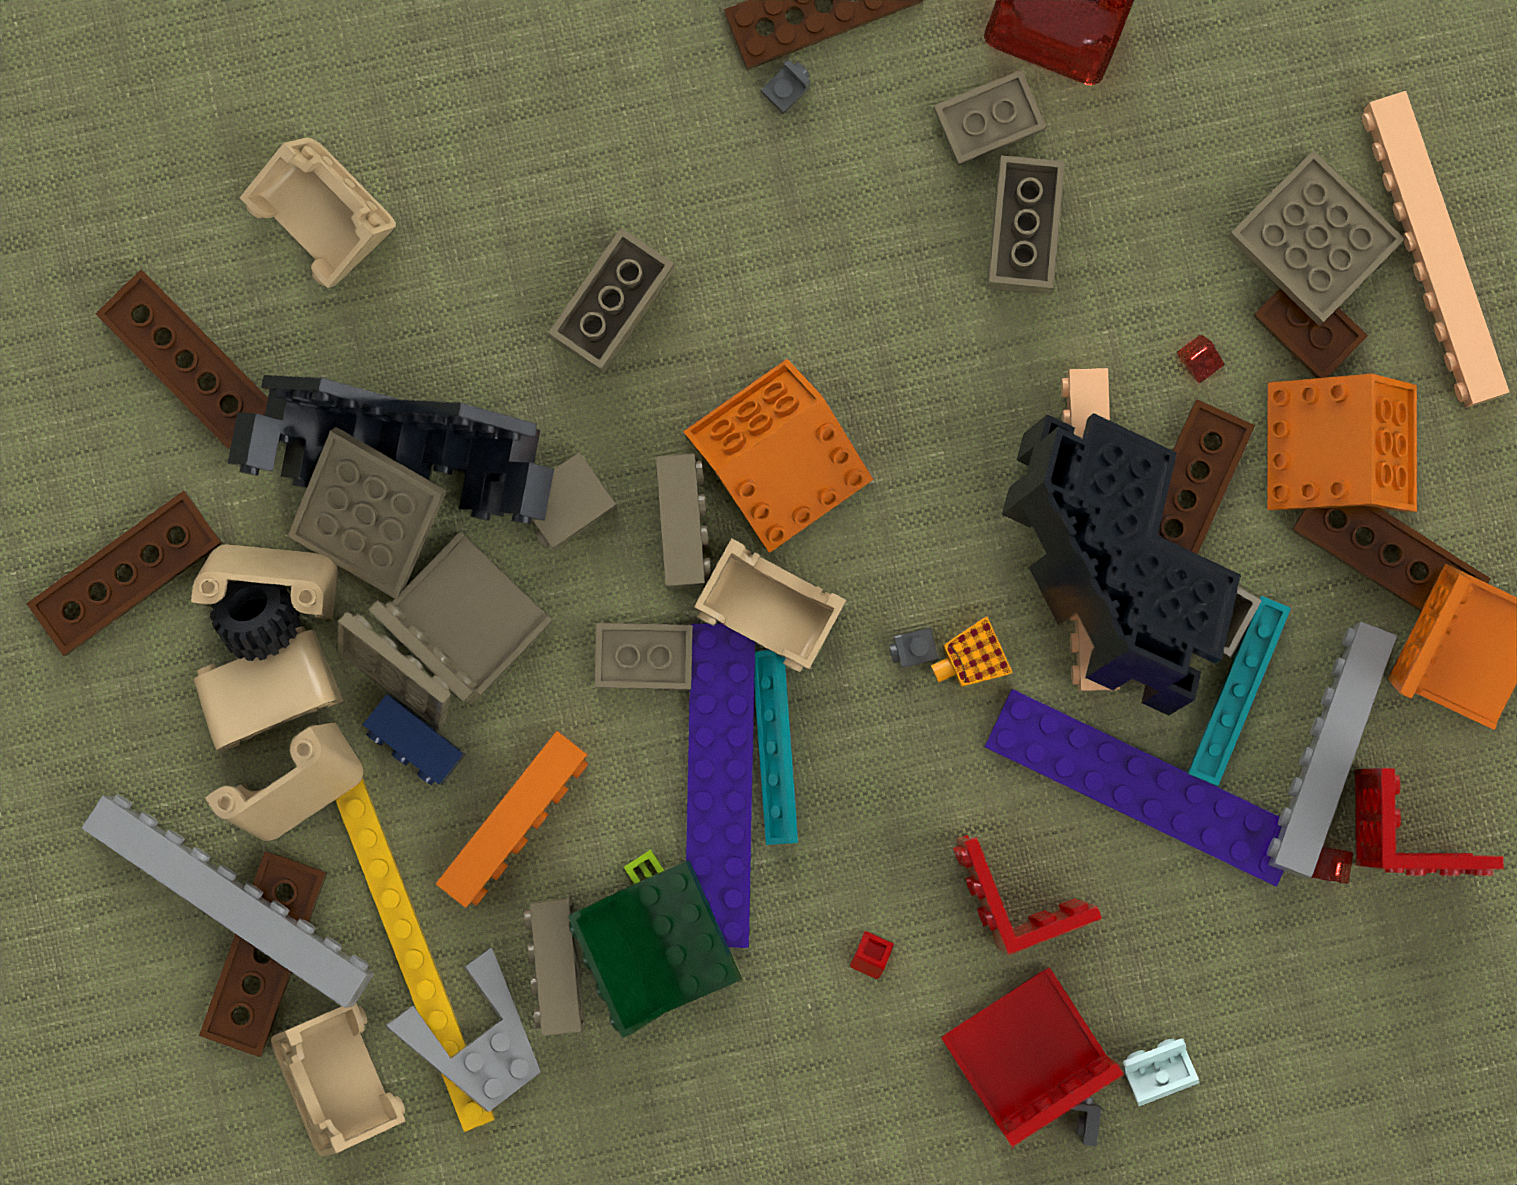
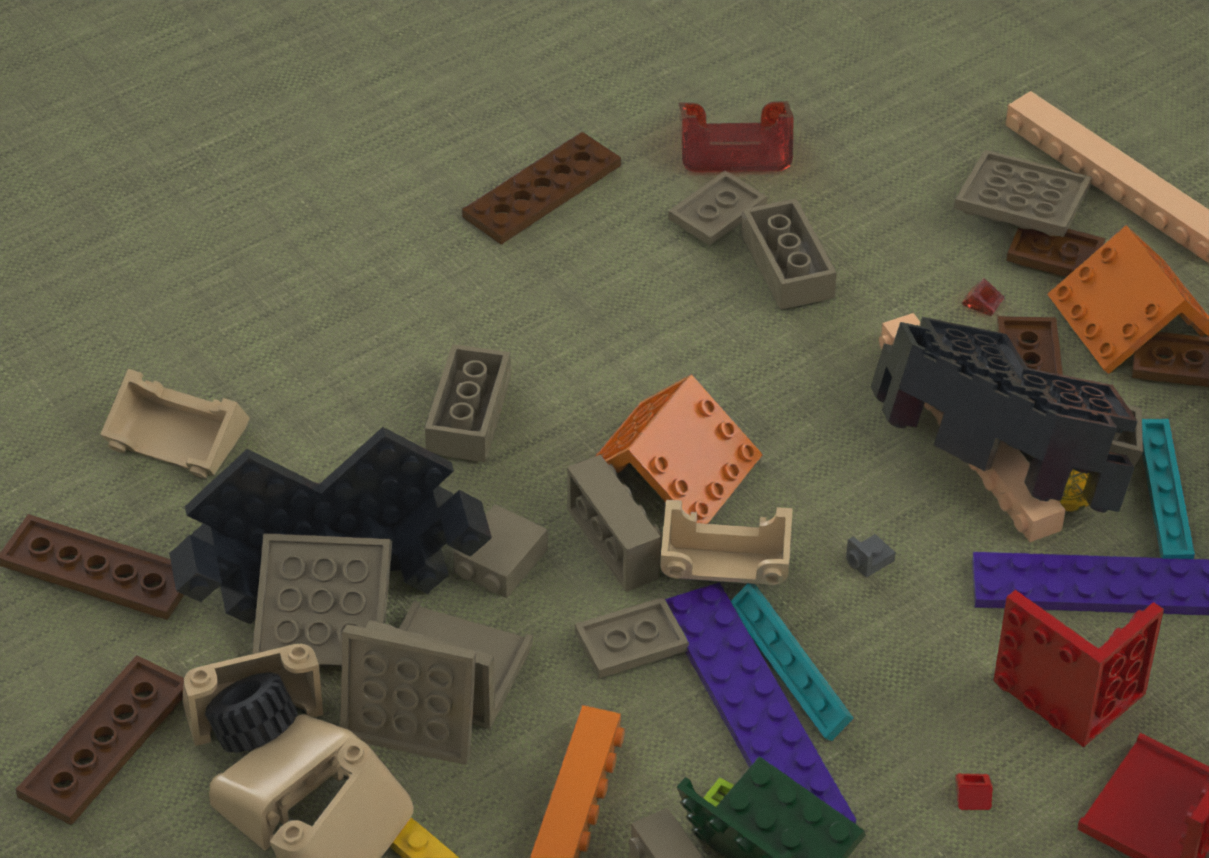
camera: 25 degrees left, 40 degrees down
(413, 740) = (449, 768): dark blue brick -> none
(787, 86) = (541, 237): dark grey bracket -> none
(973, 656) = (926, 538): torso -> none

